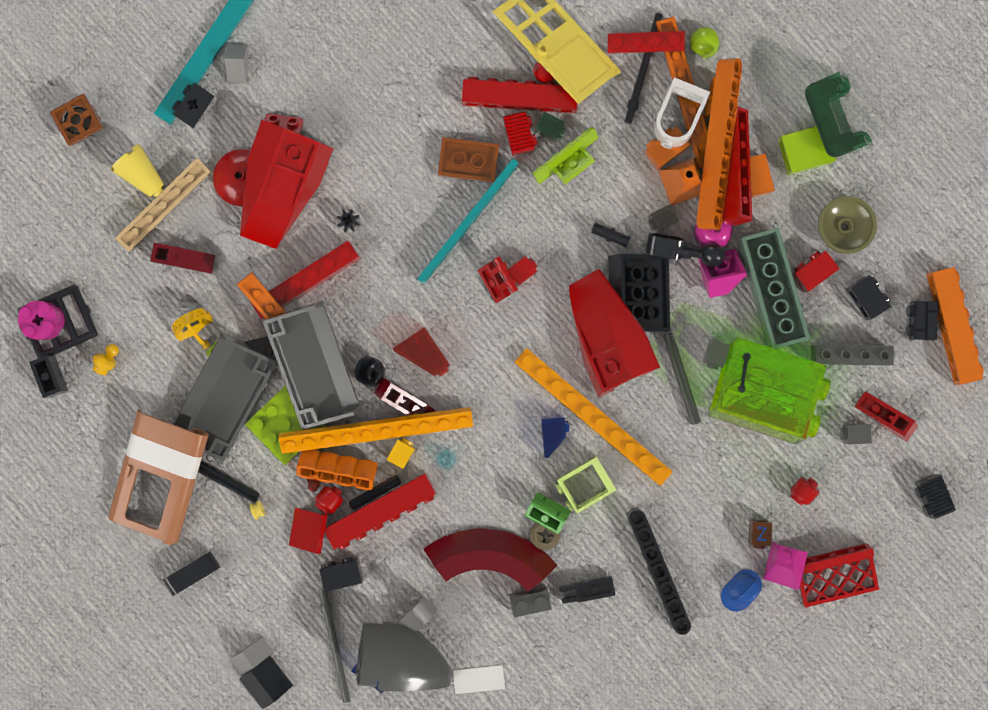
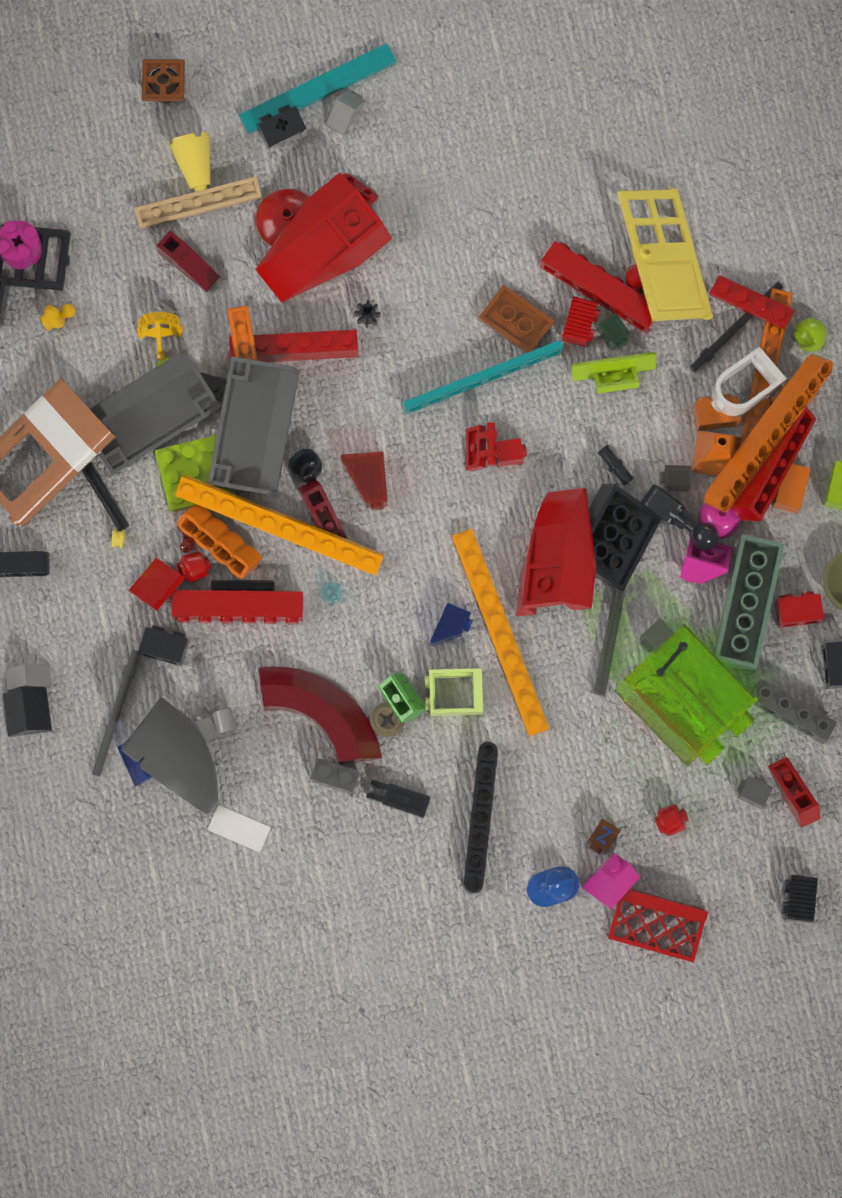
camera: 20 degrees right, 10 degrees down
(401, 452) = (291, 561): yellow brick -> none

